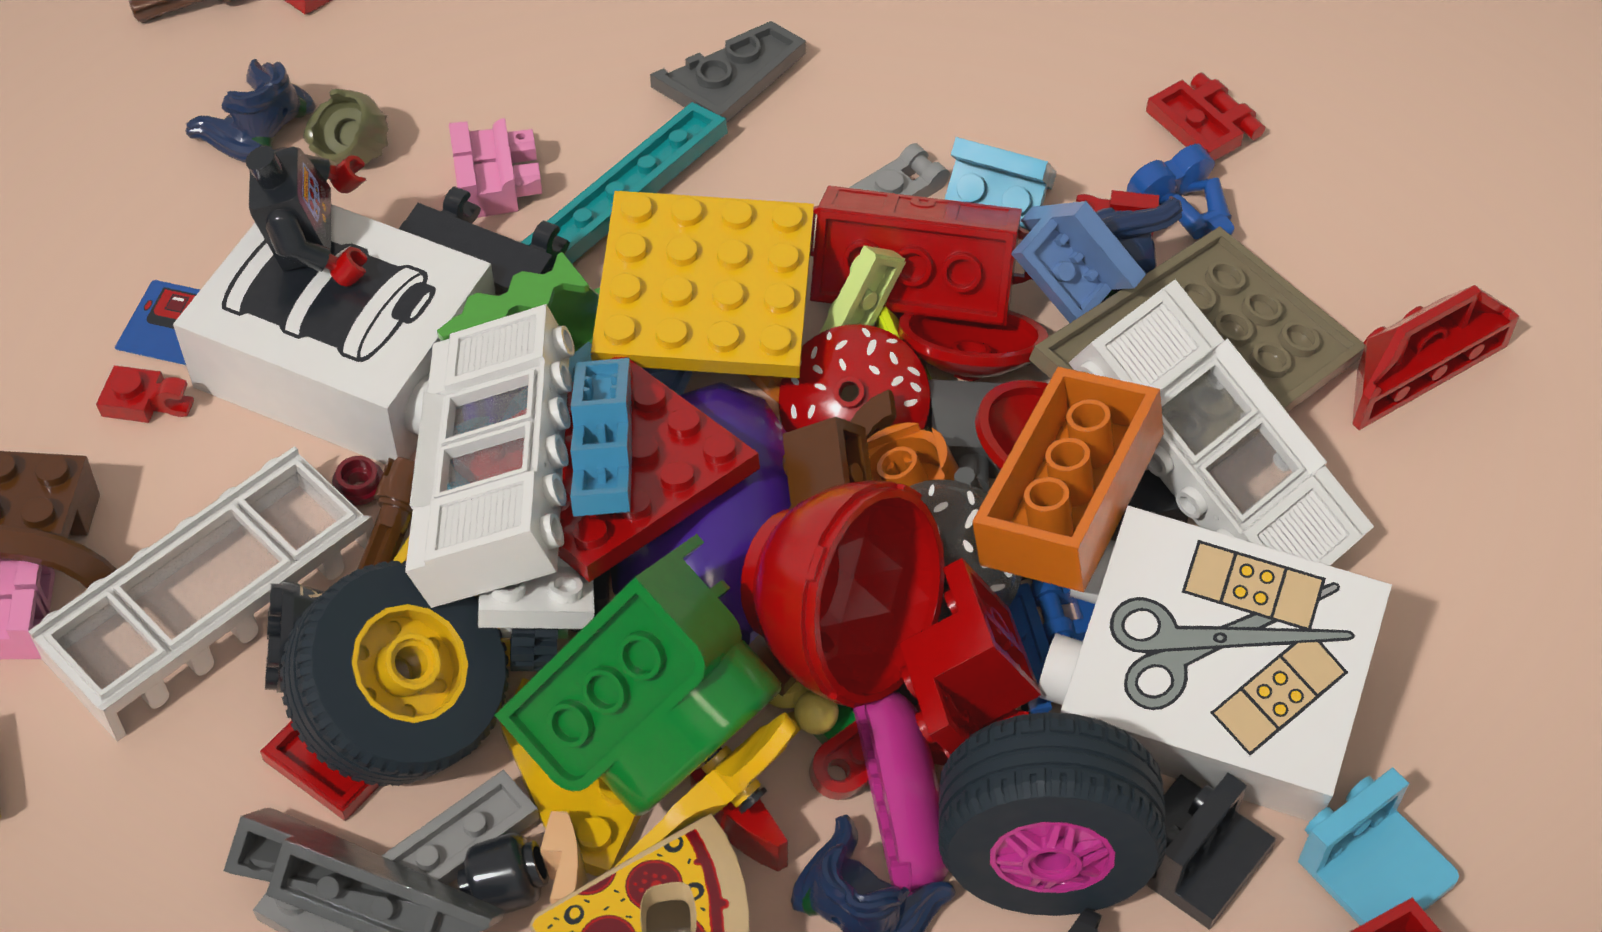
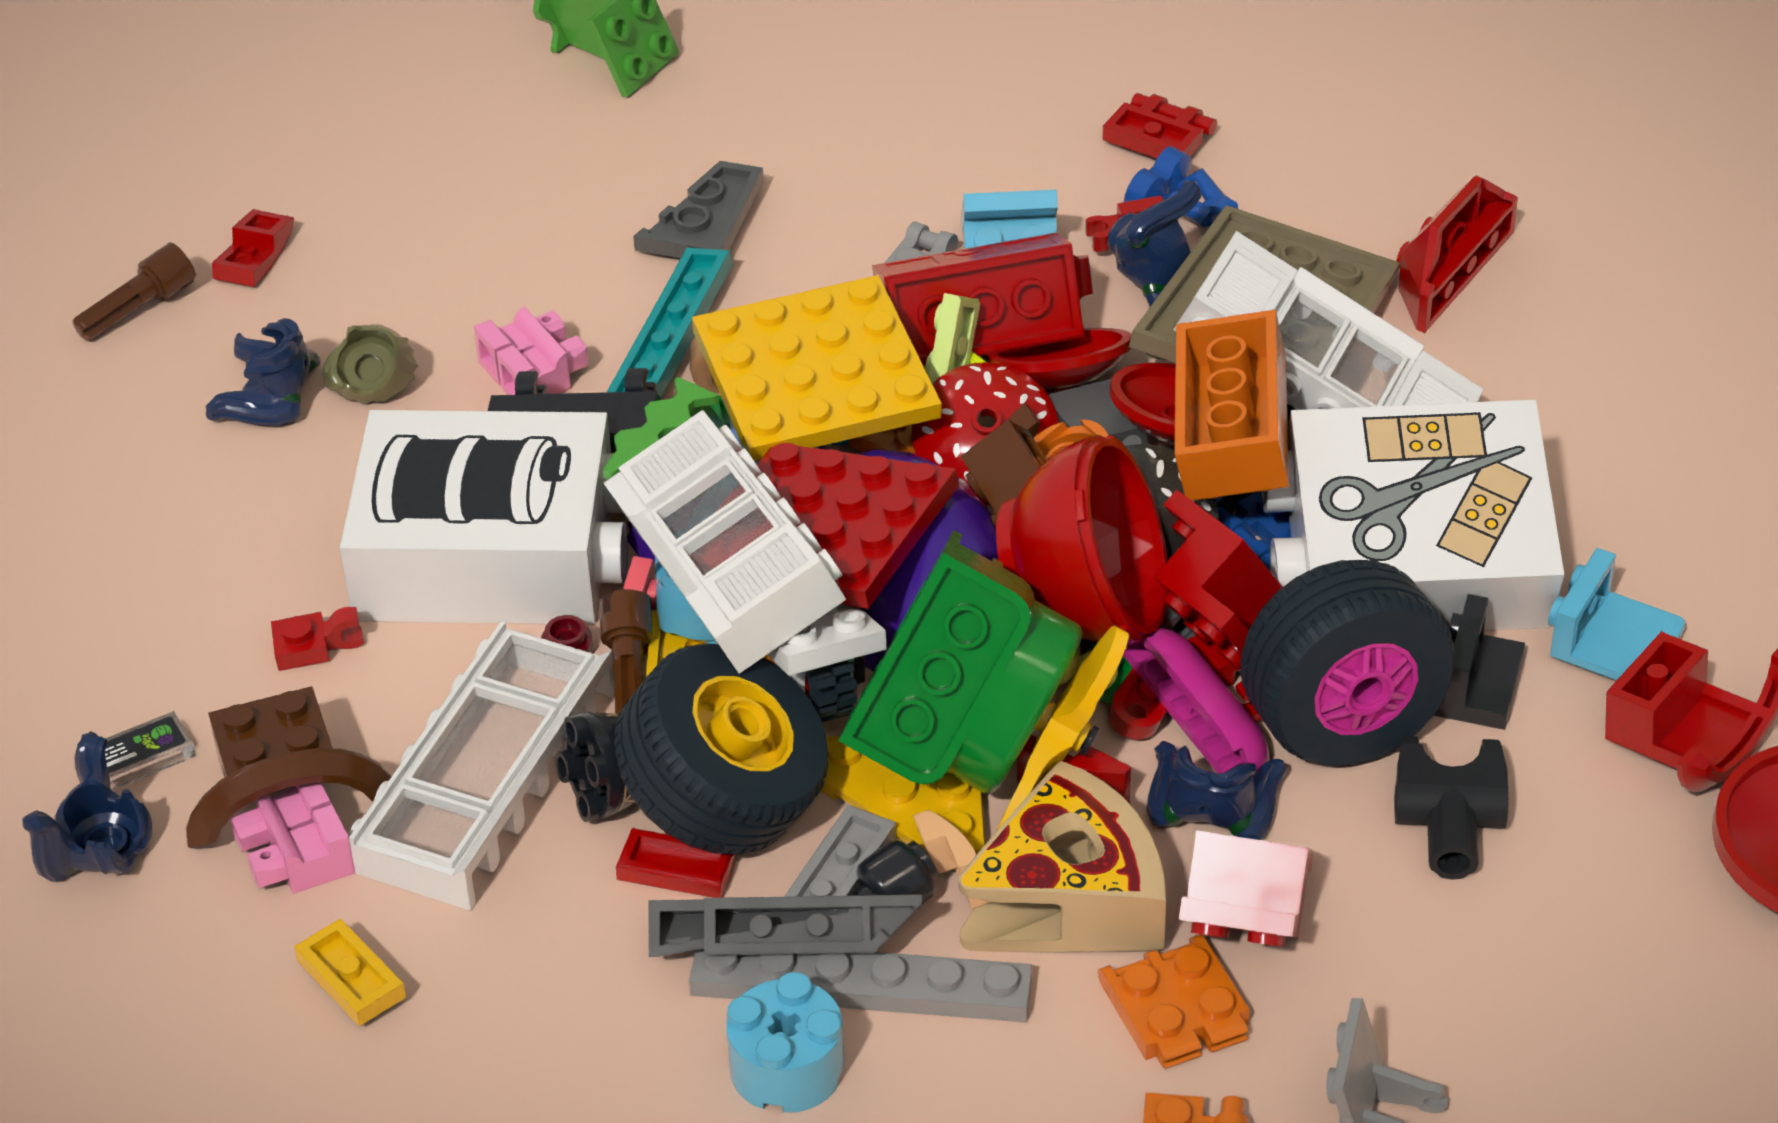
camera: 20 degrees left, 10 degrees down
(151, 325) = (297, 576): blue sticker -> none
(294, 208) = (411, 420): black torso -> none
(601, 437) = (817, 493): dark azure slope -> none
(1074, 257) = (1128, 251): medium blue bracket -> none

